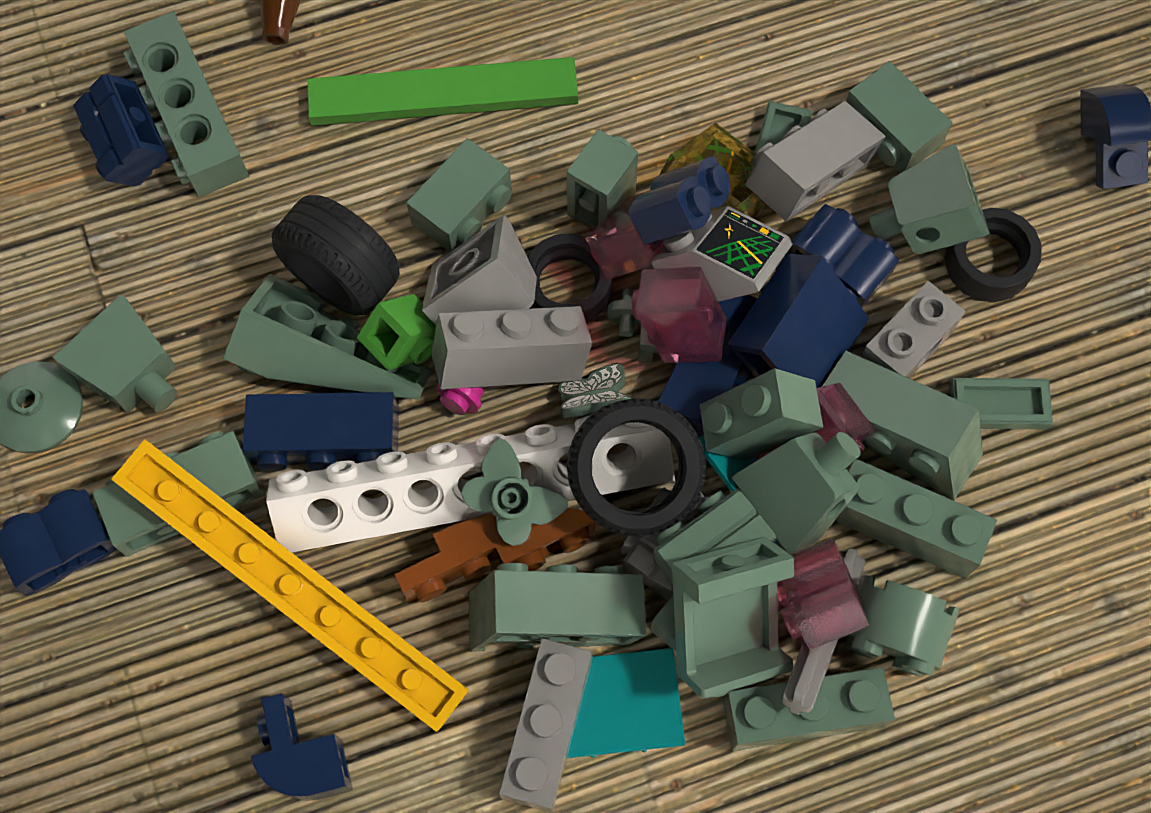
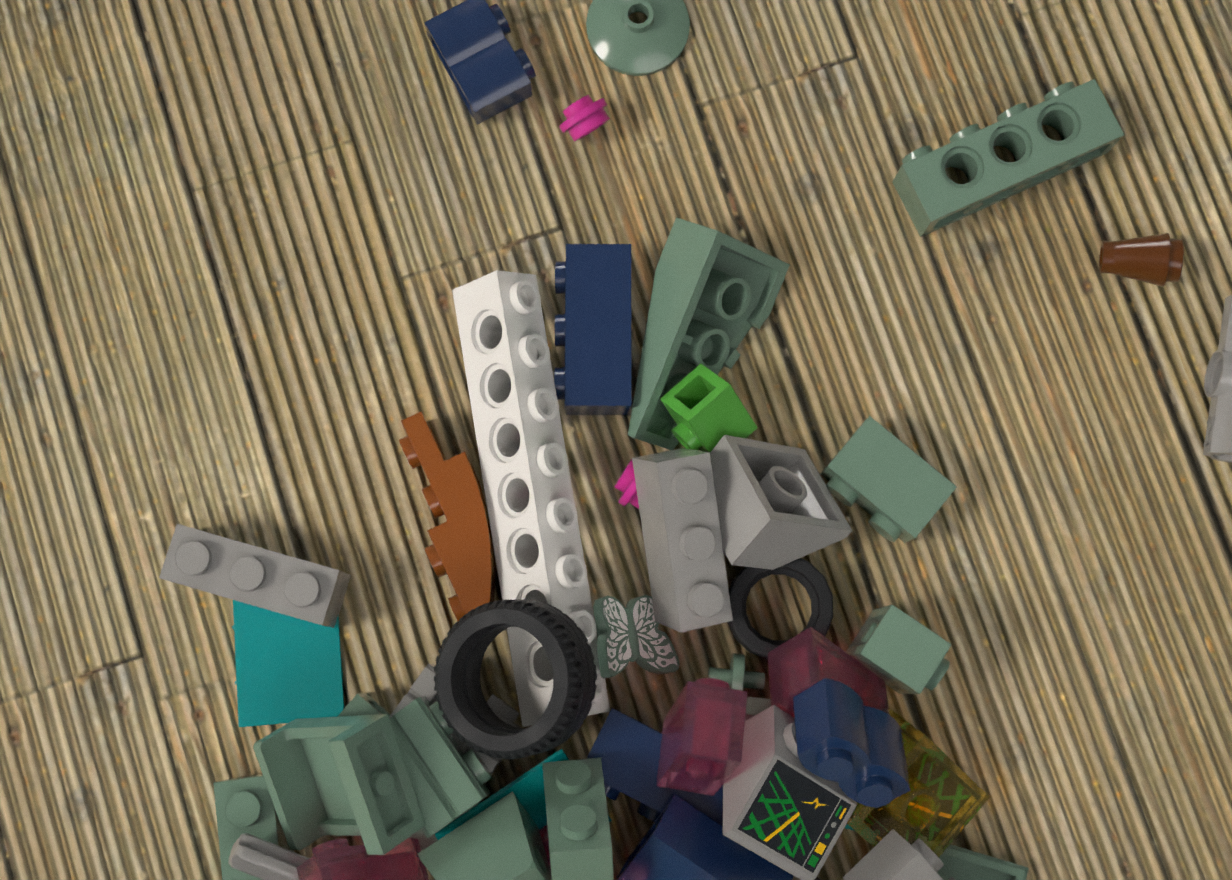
camera: 90 degrees right, 10 degrees up
(119, 443) = (584, 117): none -> dark pink plate
(120, 131) = (966, 86): dark blue brick -> none
(120, 359) = (684, 110): sand green torso -> none
(214, 462) = (529, 179): sand green brick -> none
(290, 585) = (414, 300): yellow plate -> none
(298, 769) = (228, 318): dark blue brick -> none
(336, 254) = (795, 334): black tyre -> none
(442, 91) = (1035, 462): bright green tile -> none
(510, 495) = (495, 534): sand green animal -> none
(556, 606) = (379, 589): sand green wedge -> none

